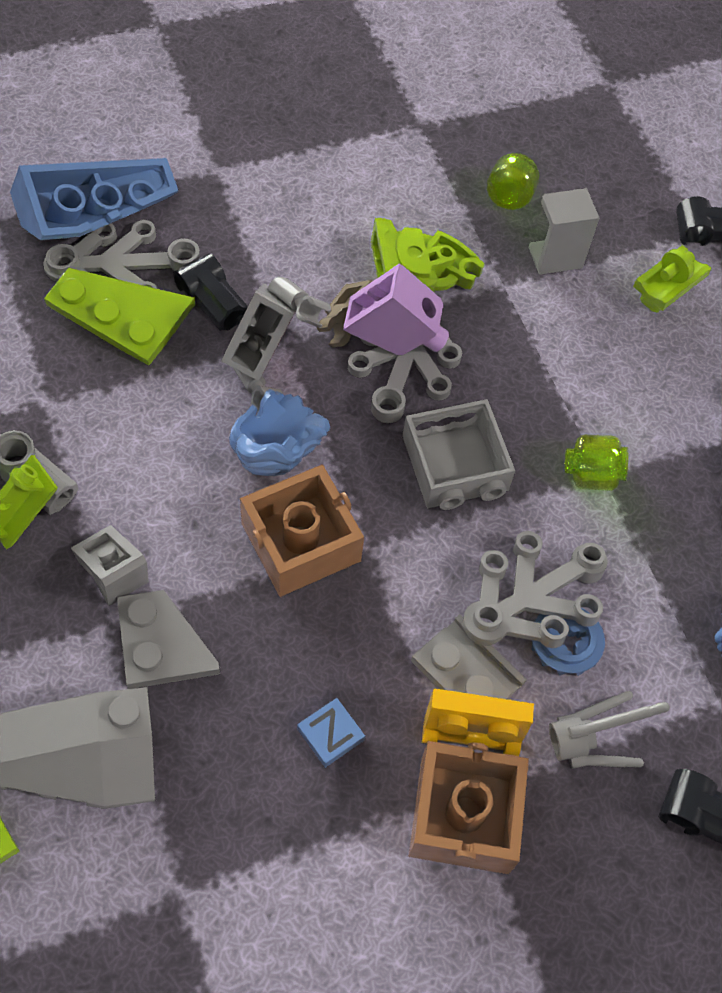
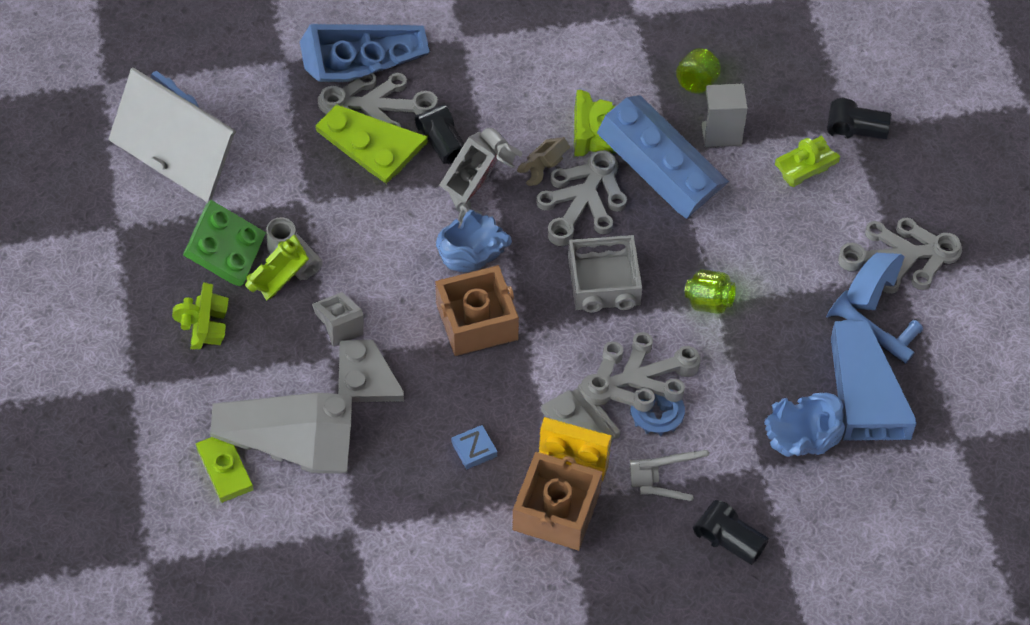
camera: 15 degrees right, 5 degrees down
(397, 313) = (577, 165): lavender torso -> none
(495, 292) = (660, 155): none -> medium blue slope

